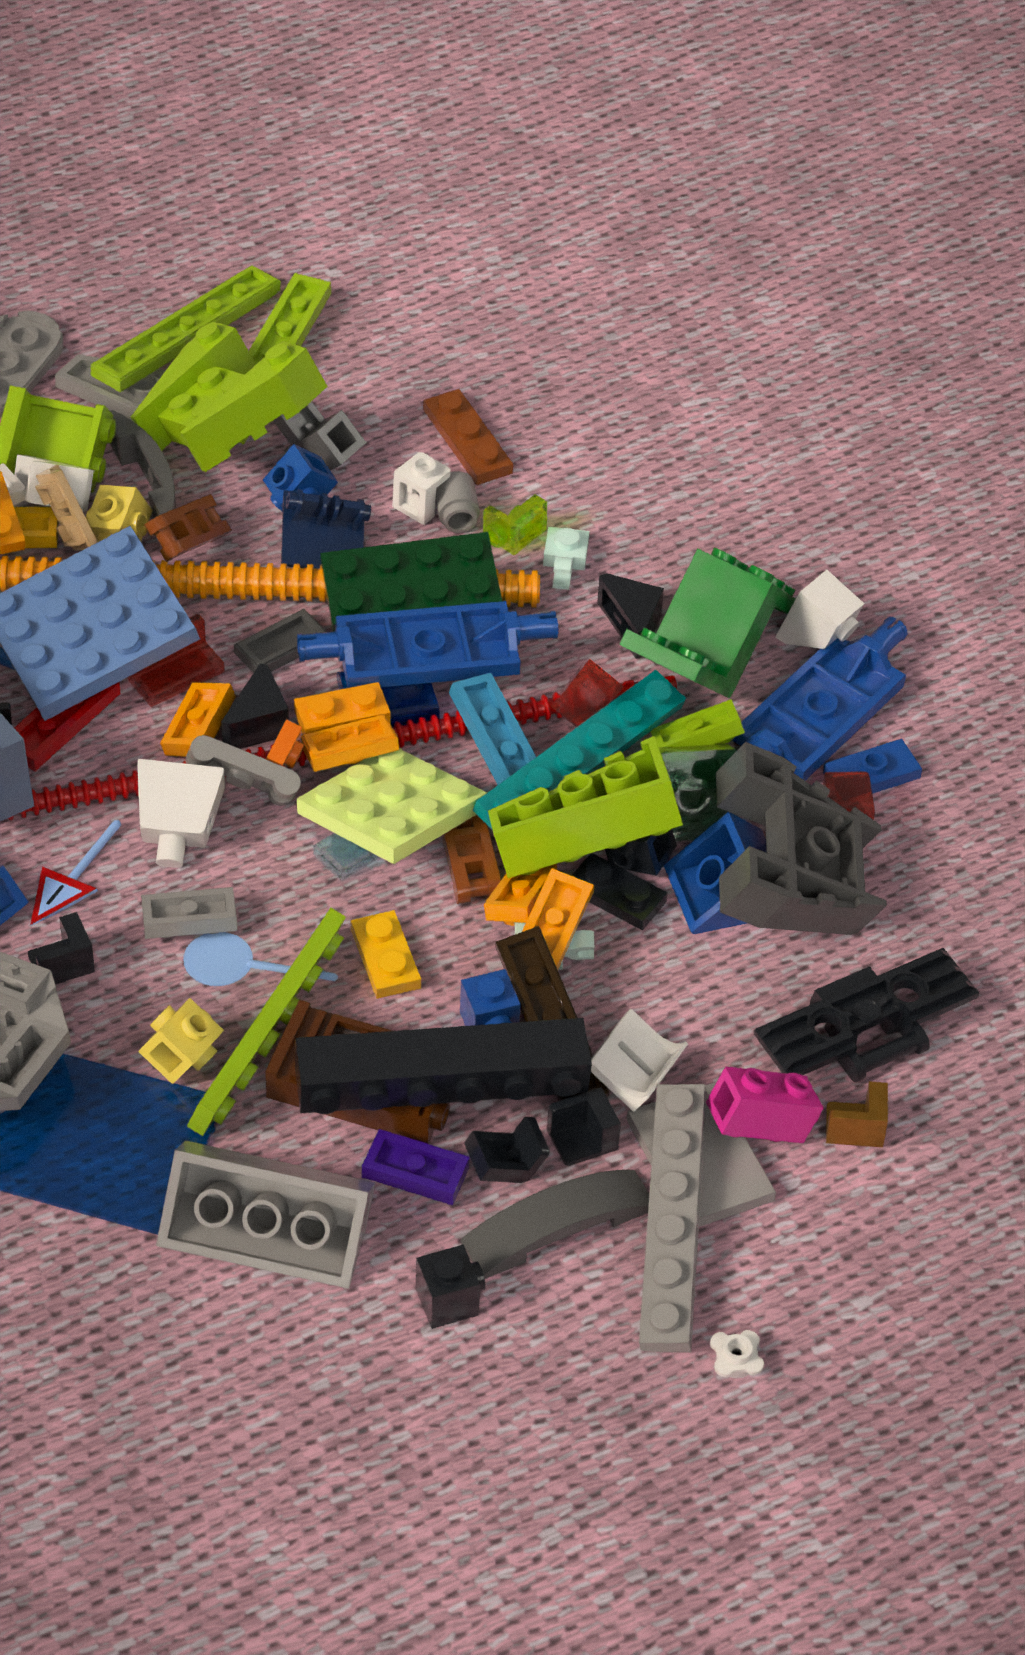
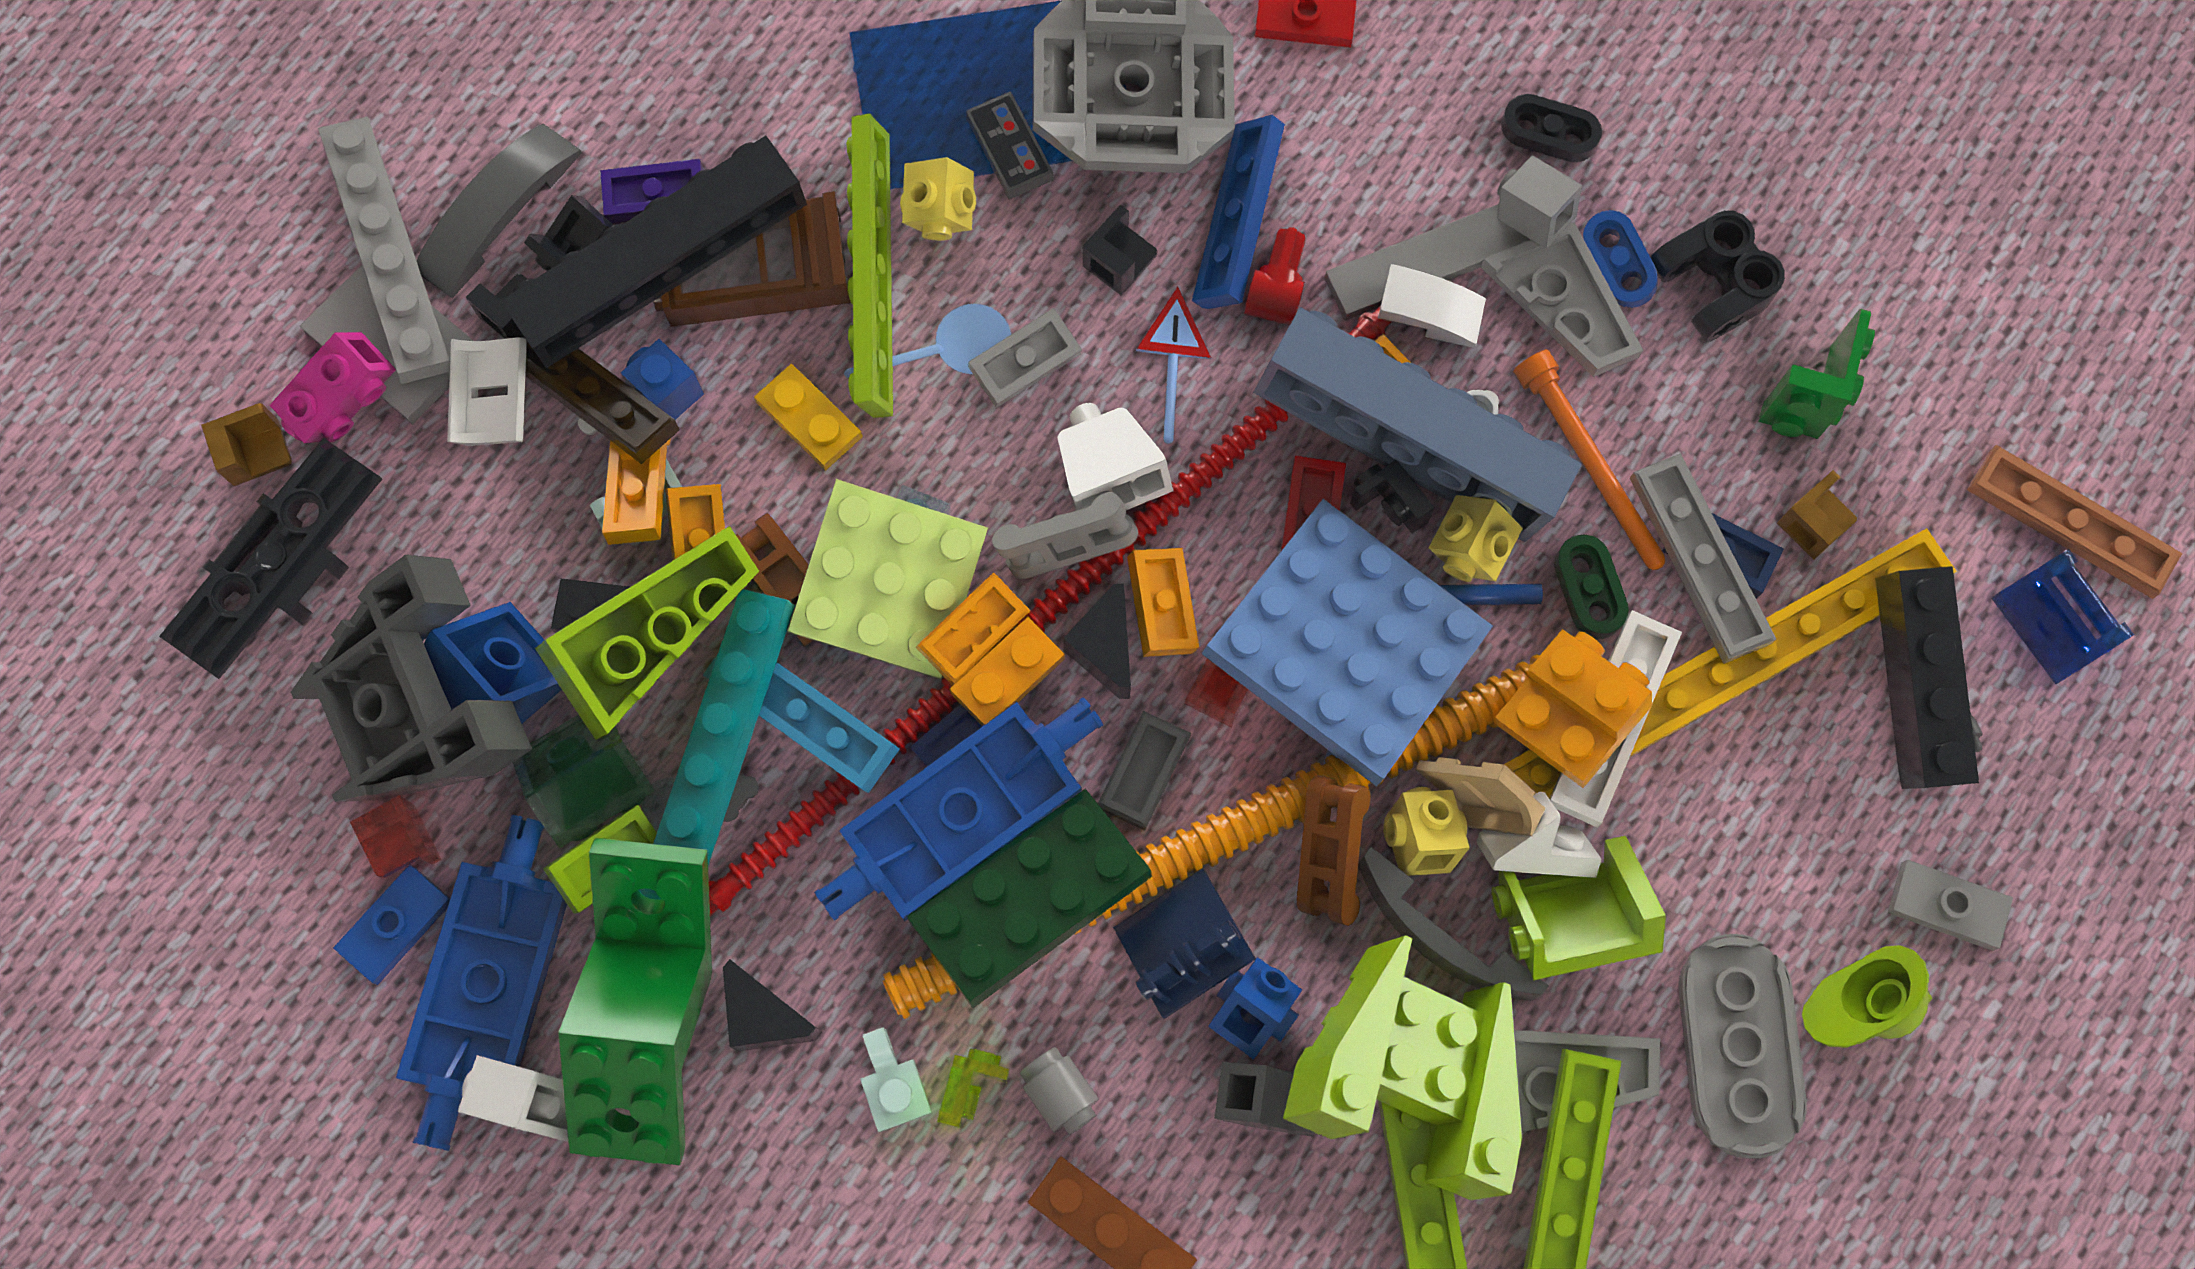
camera: 155 degrees right, 25 degrees up
(92, 1070) = (1009, 145): none -> tile
(265, 1213) = (761, 78): light grey slope -> none
(286, 747) = (1035, 579): orange plate -> none
(416, 486) = (1109, 1083): white bracket -> none
(449, 1286) = (558, 77): black brick -> none
(586, 693) = (750, 840): clear red panel -> none
(736, 1365) = (283, 158): white plate -> none

